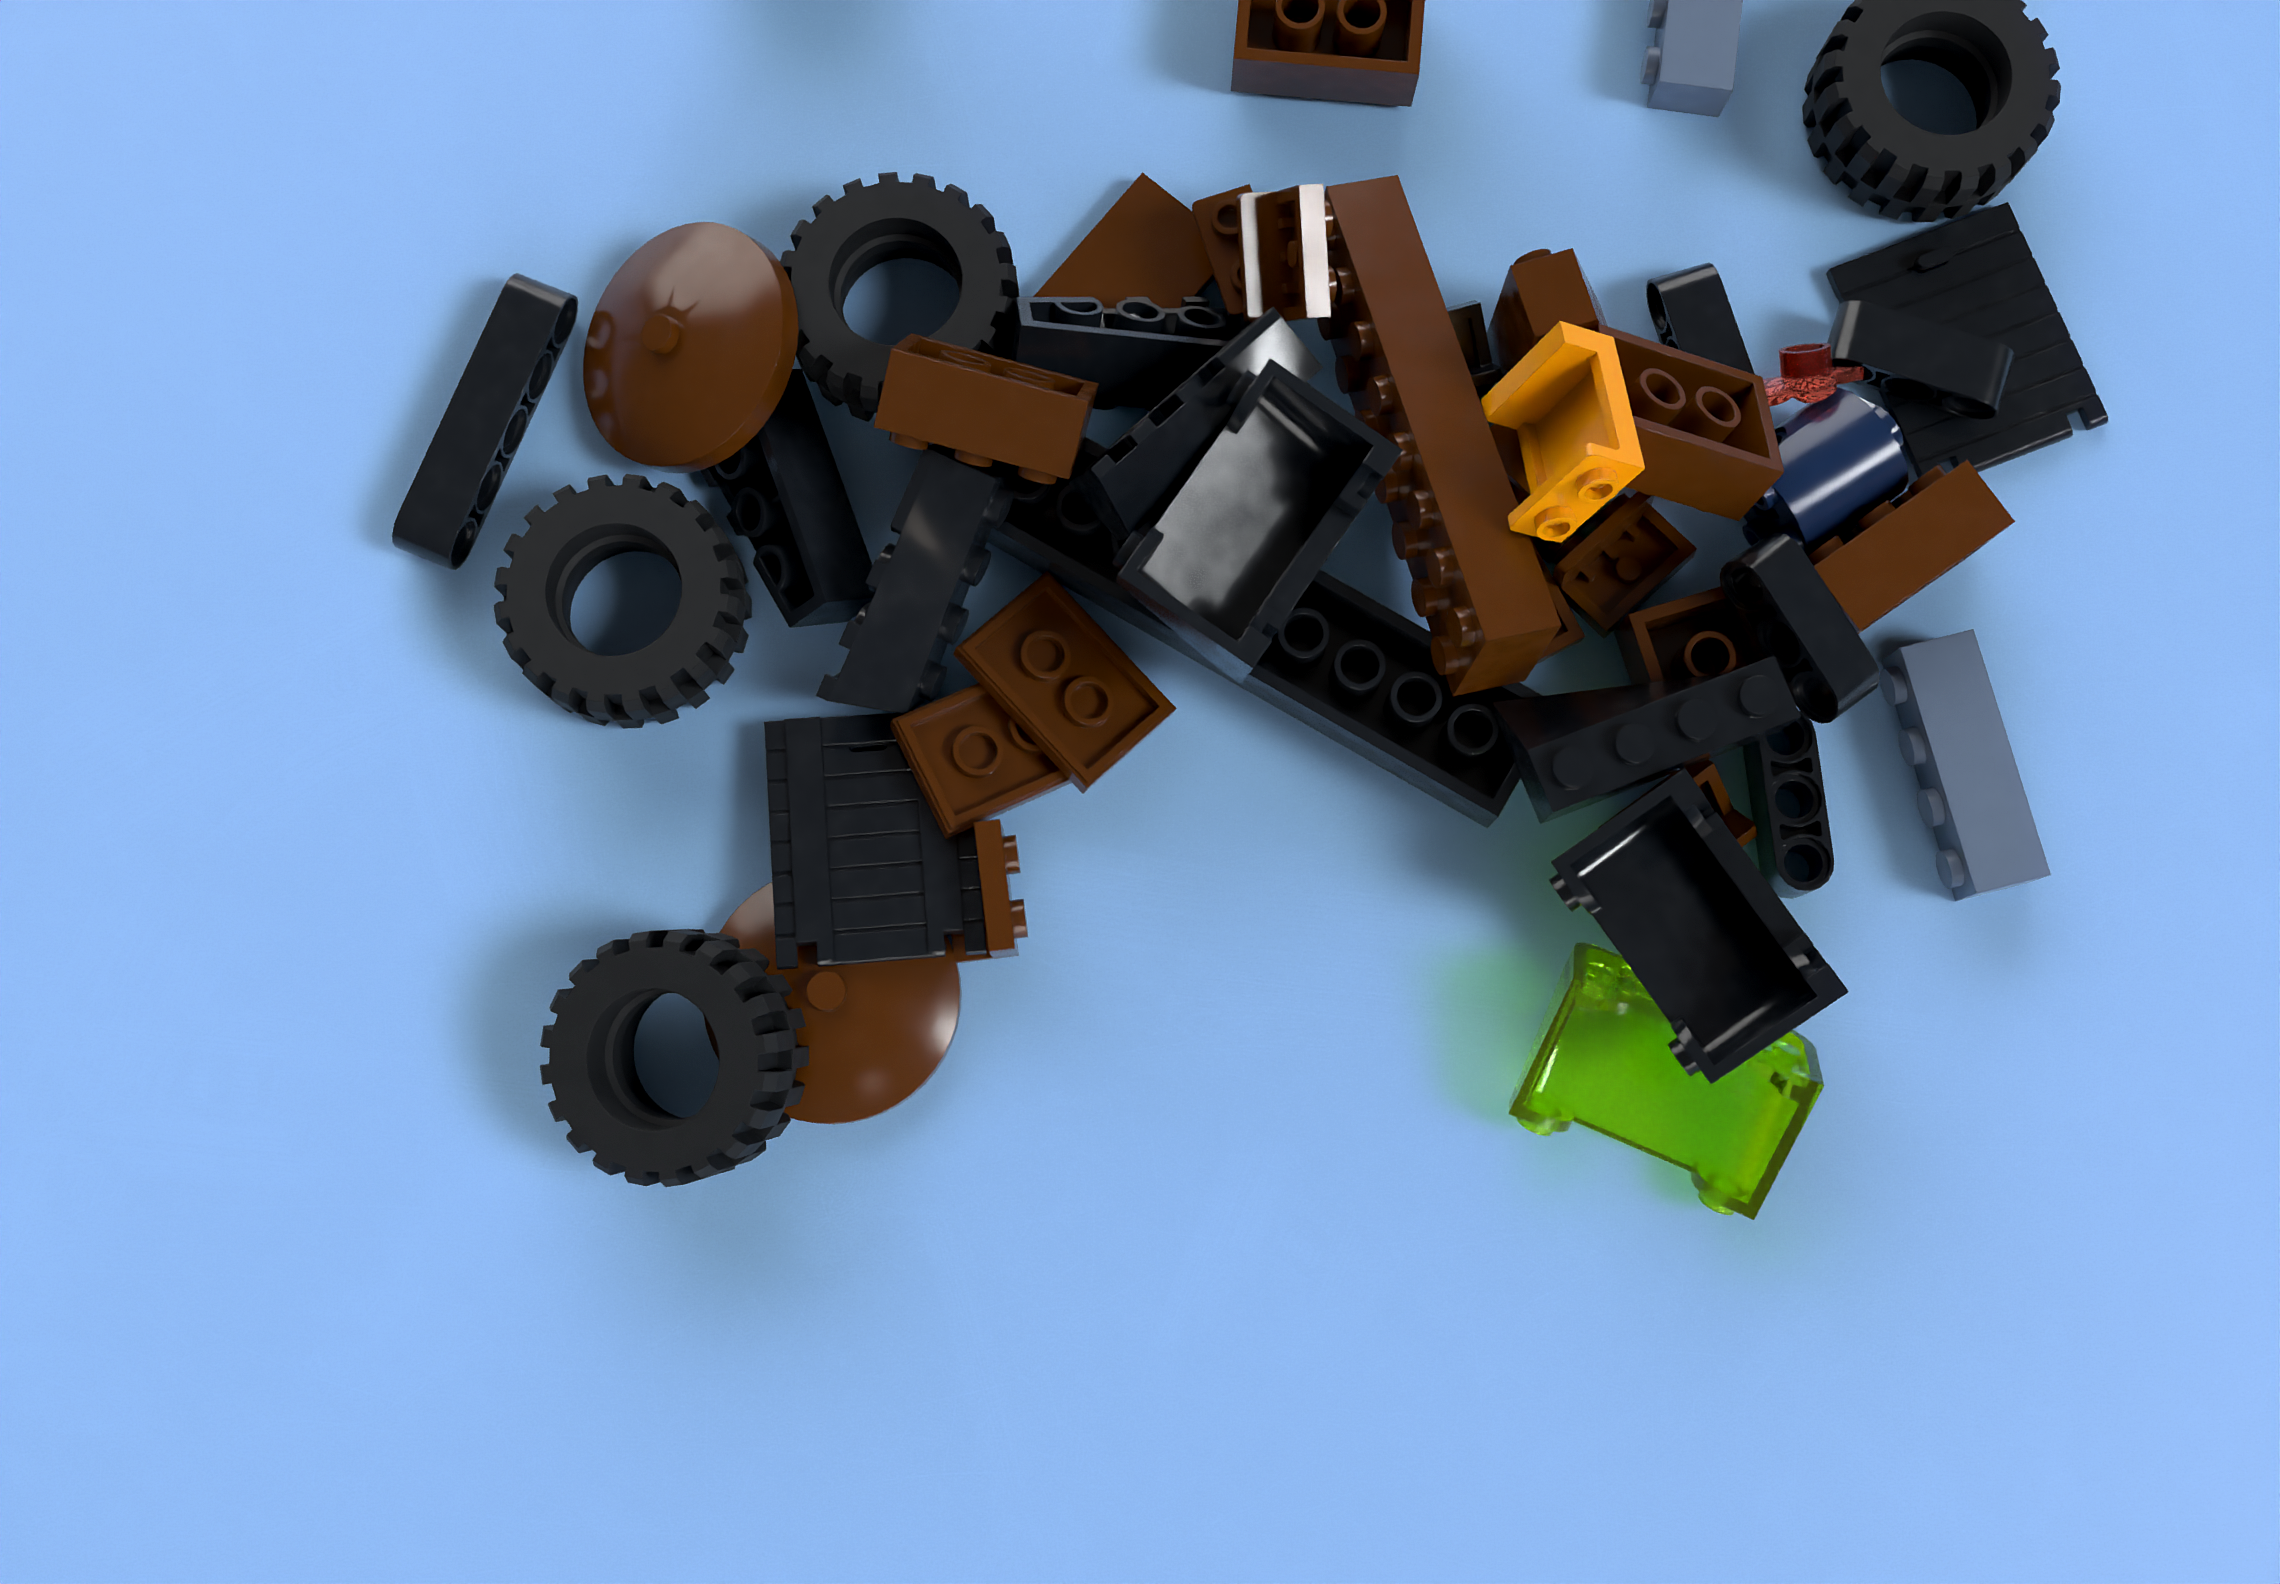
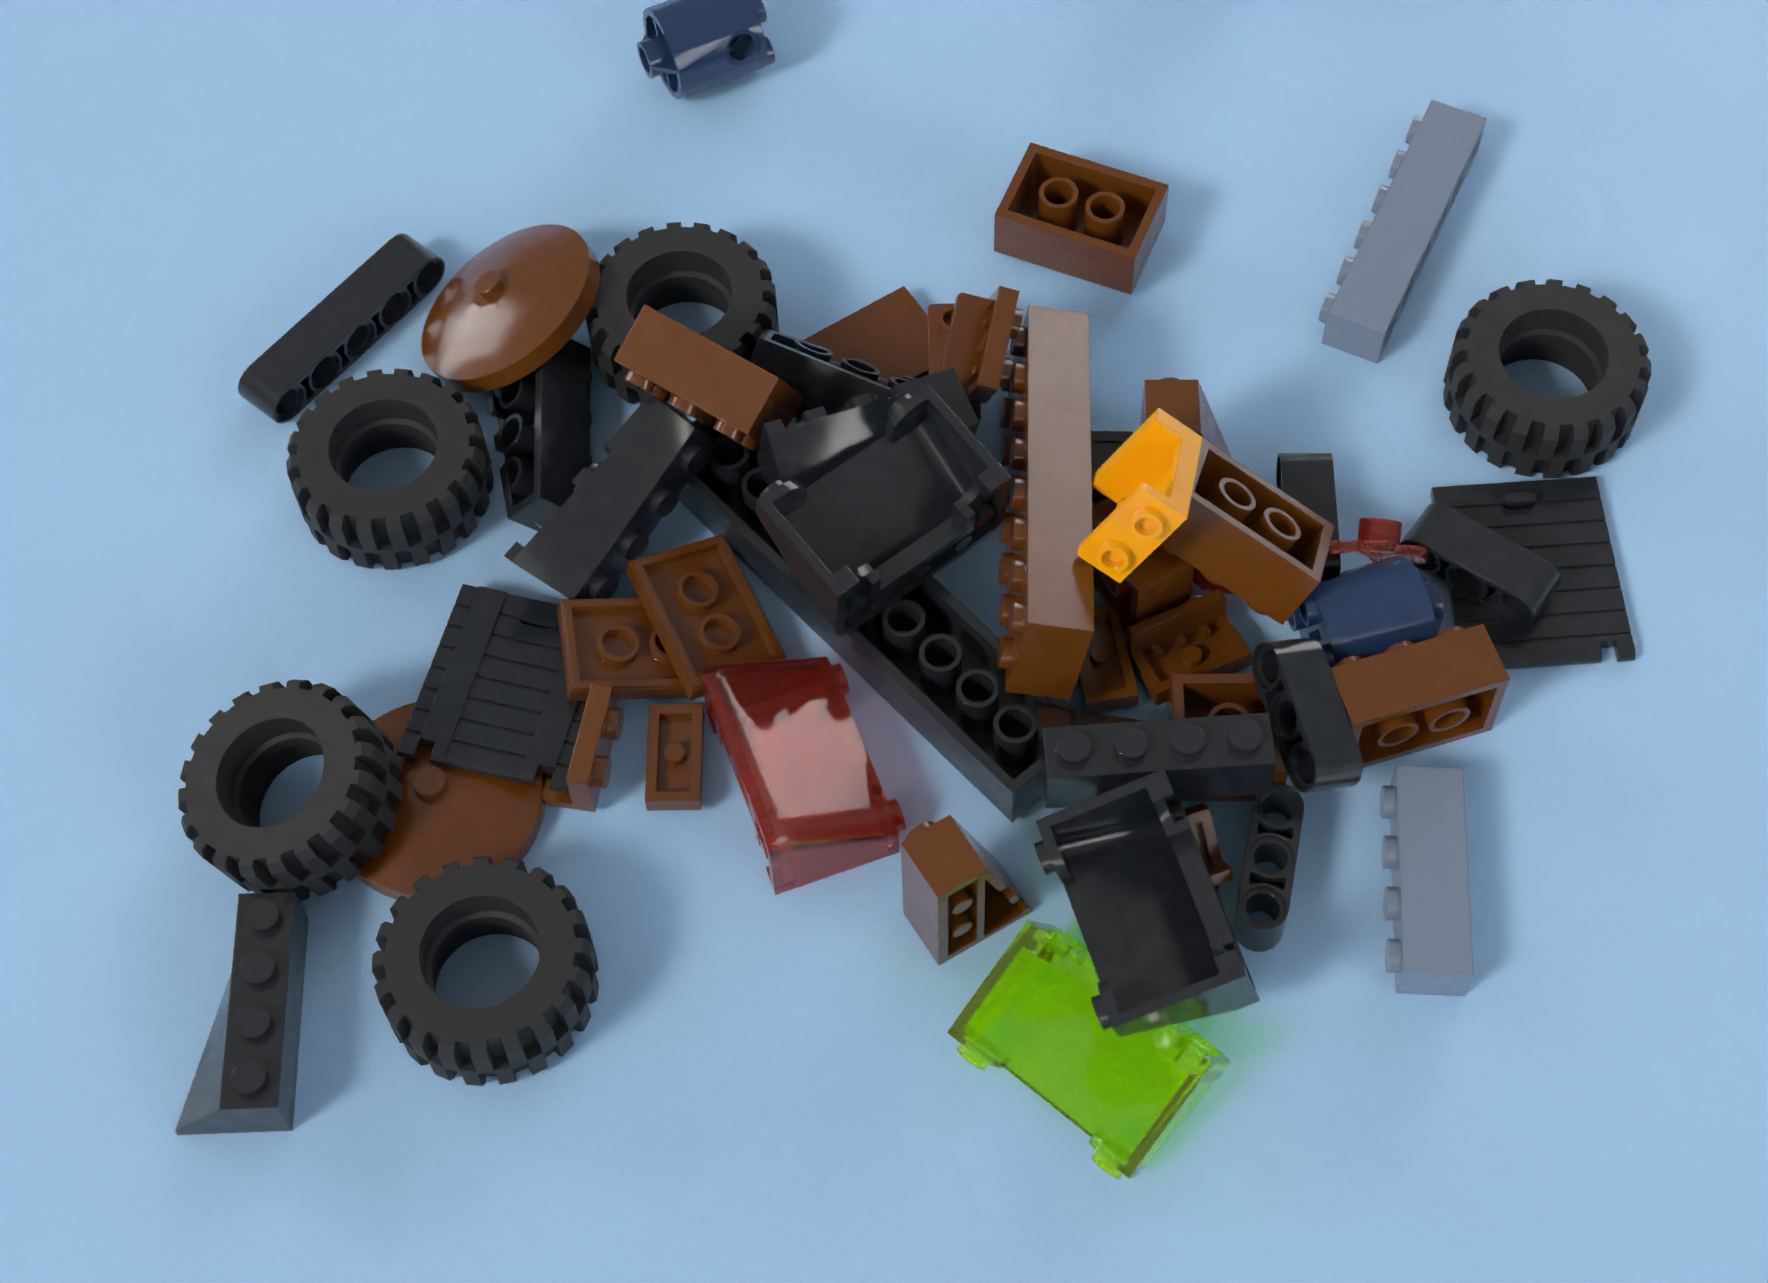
camera: 20 degrees right, 20 degrees down
(740, 1348) = (253, 1045): none -> black wedge
(887, 1183) = (475, 904): none -> black tyre
(1087, 864) = (675, 757): none -> reddish brown plate
(1237, 836) = (801, 767): none -> clear red windscreen
(1471, 949) = (955, 889): none -> reddish brown wedge

